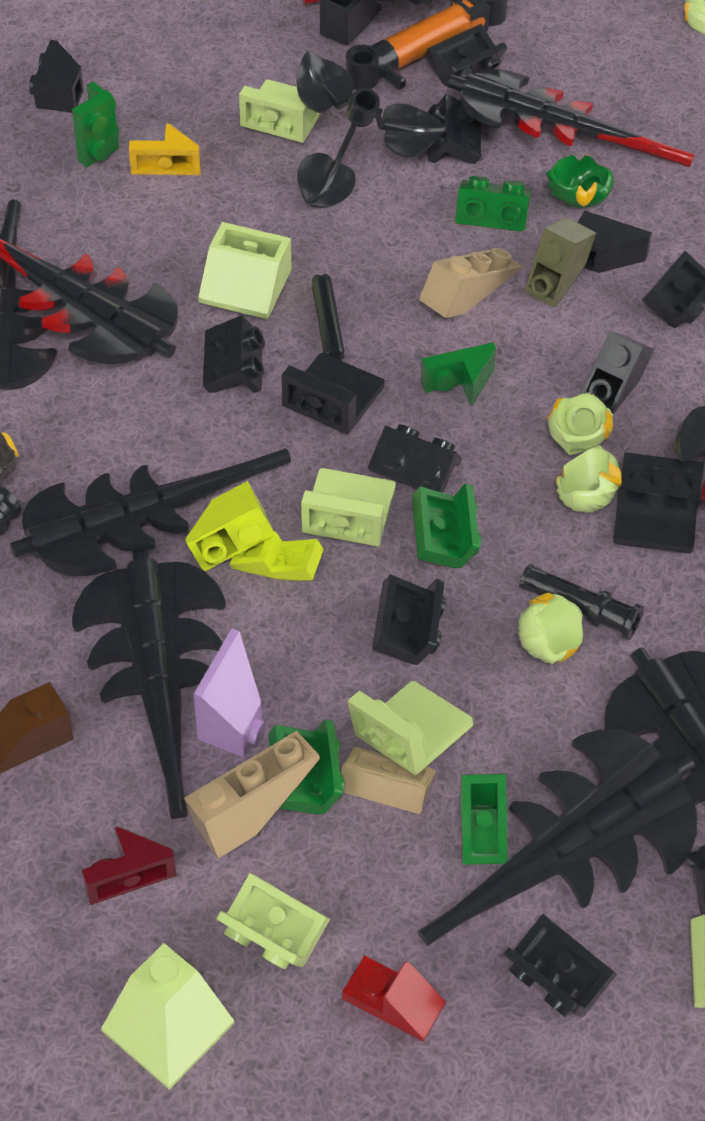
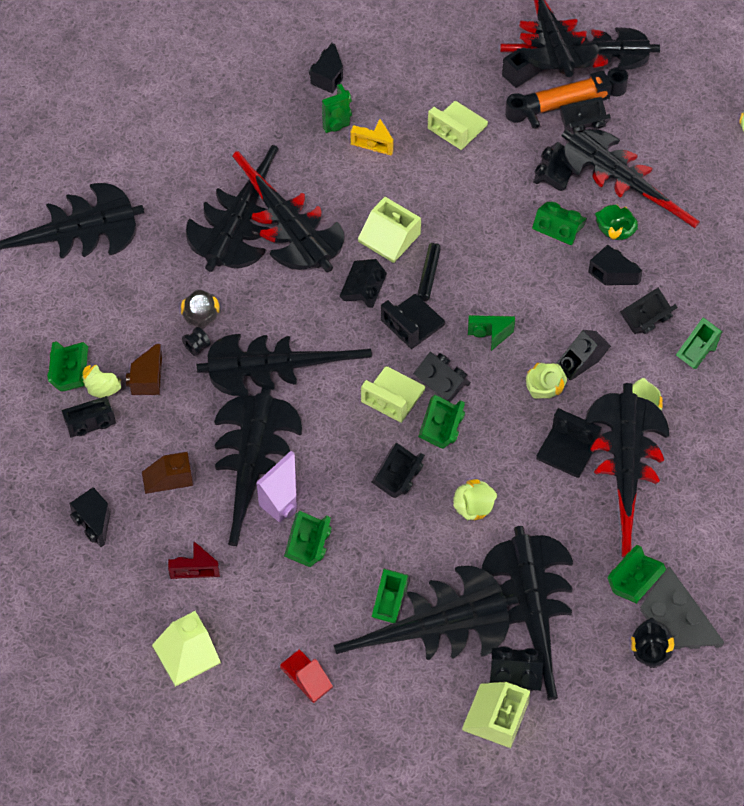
camera: 20 degrees right, 5 degrees up
(229, 527) = (319, 388): neon yellow slope -> none
(247, 796) = (267, 546): tan slope -> none
(273, 921) = (258, 617): yellowish green bracket -> none
(281, 559) = (340, 413): neon yellow slope -> none
(327, 84) = (482, 119): black plant -> none
(385, 781) = (350, 558): tan slope -> none
(409, 726) = (374, 532): yellowish green bracket -> none
(465, 280) = (518, 270): tan slope -> none
(559, 260) = (578, 272): olive slope -> none
(561, 967) = (397, 687): black bracket -> none
(589, 480) = (535, 418): yellowish green hair -> none
(598, 606) = (508, 494): black pin -> none

